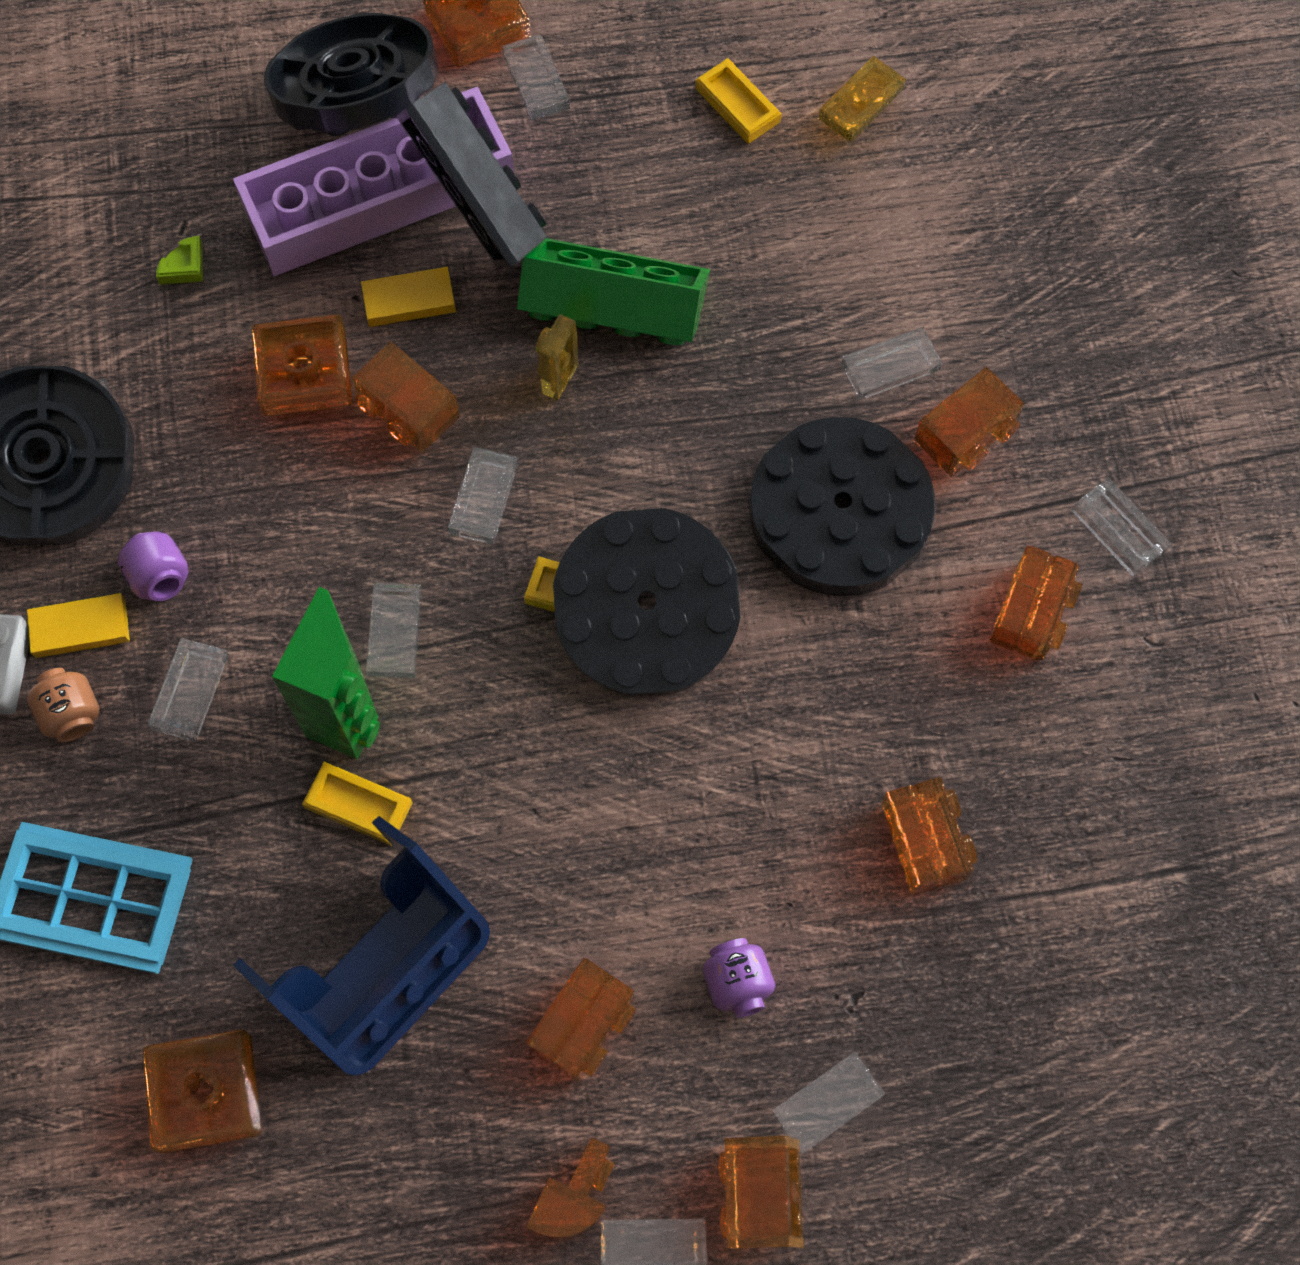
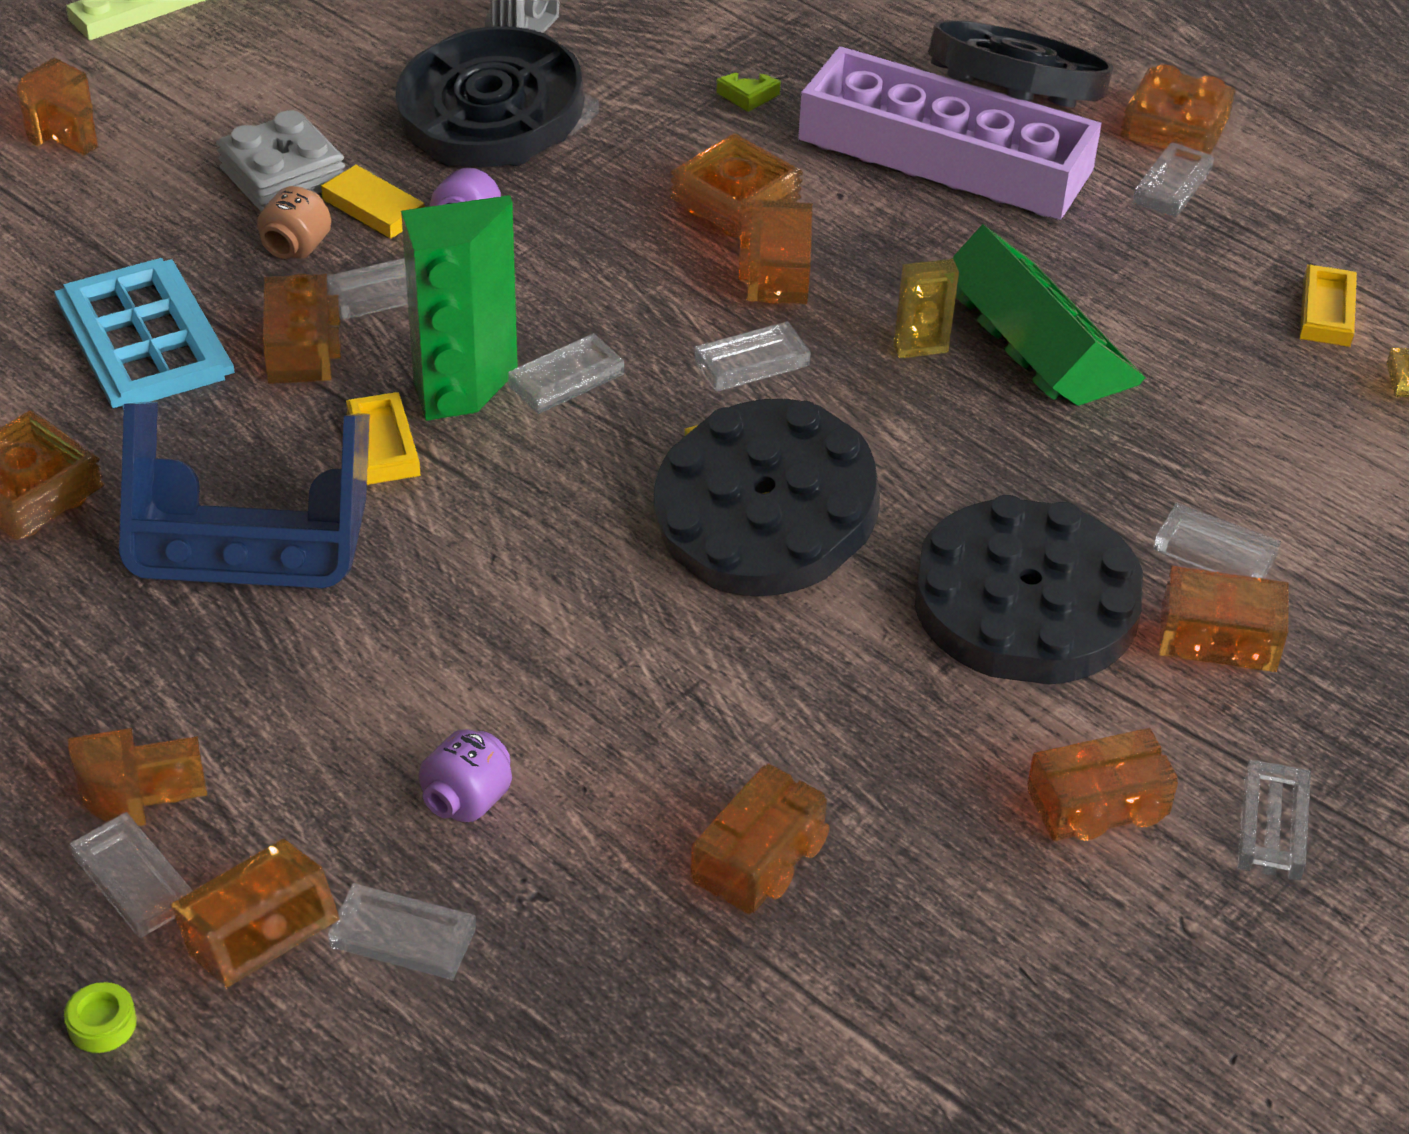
camera: 50 degrees right, 25 degrees down
(196, 784) = (299, 329): none -> clear orange brick
(408, 296) = (877, 217): yellow tile -> none
(472, 176) = (1011, 140): black slope -> none
(582, 1020) = (313, 684): clear orange brick -> none

